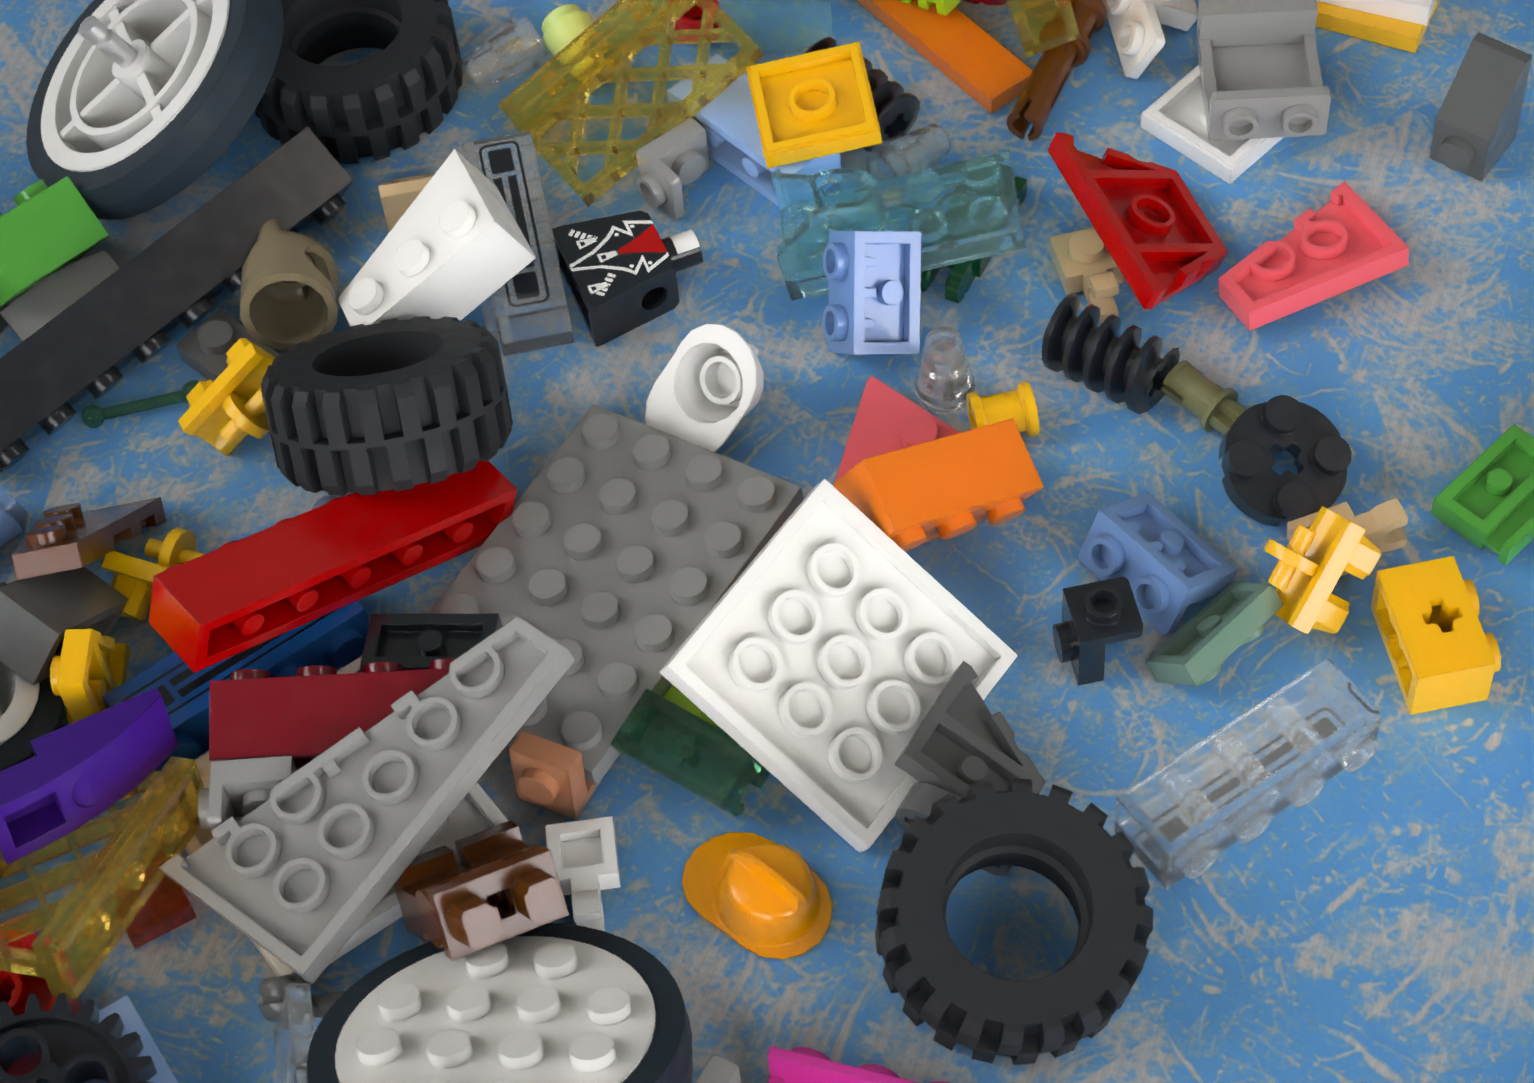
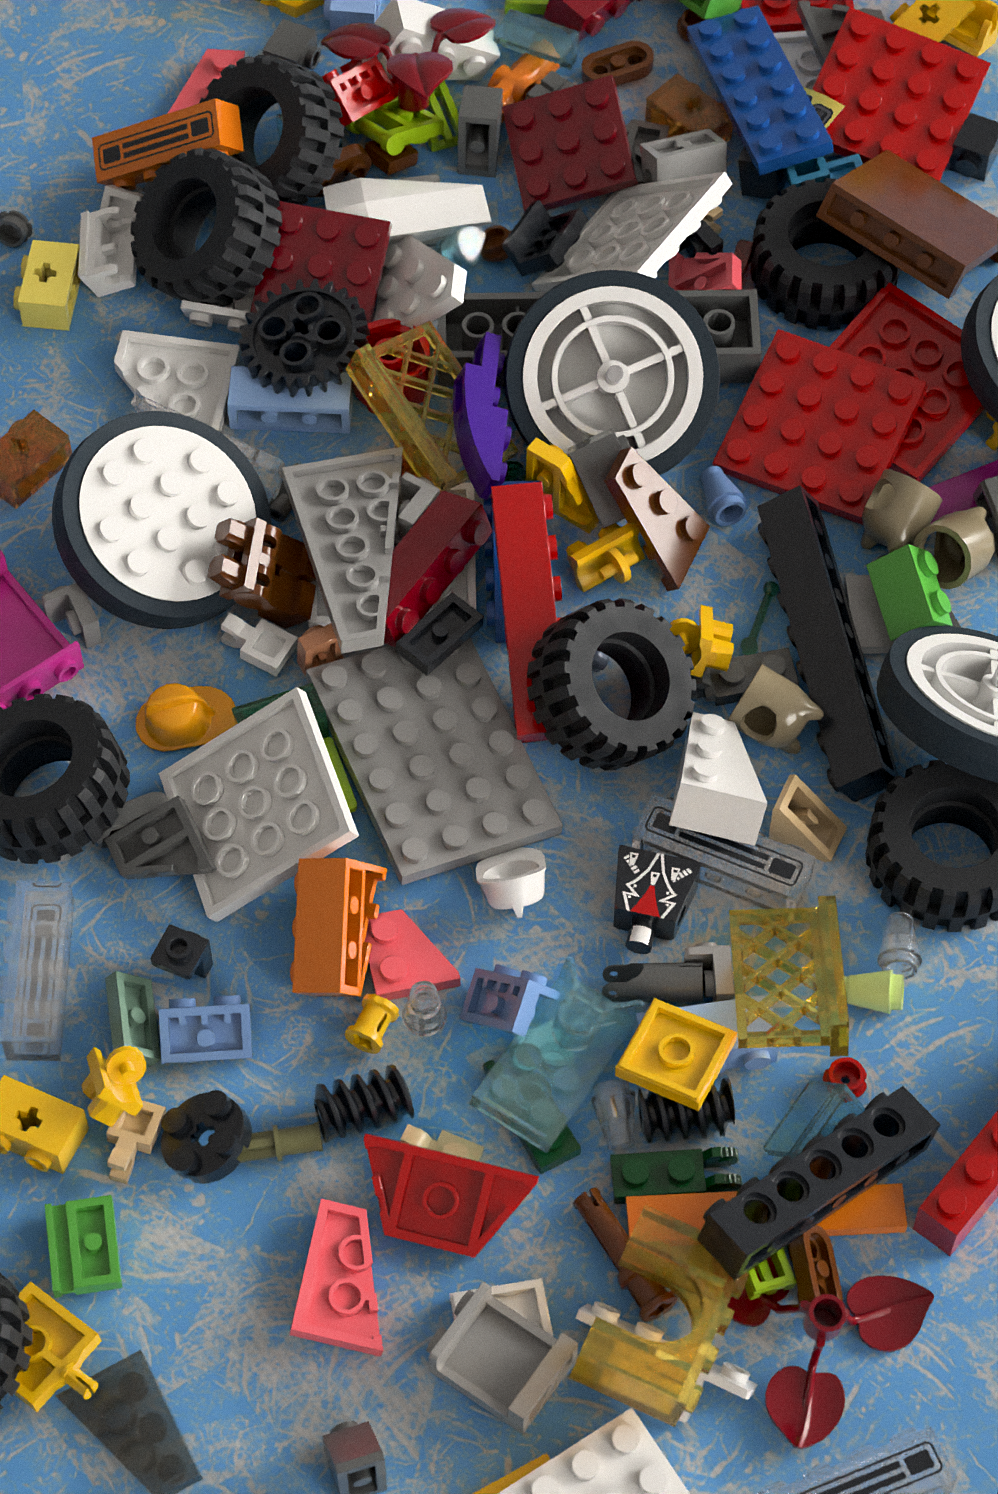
camera: 120 degrees right, 5 degrees up
(720, 202) = (655, 980): none -> dark grey piece
(942, 92) = (672, 1172): none -> dark green hinge

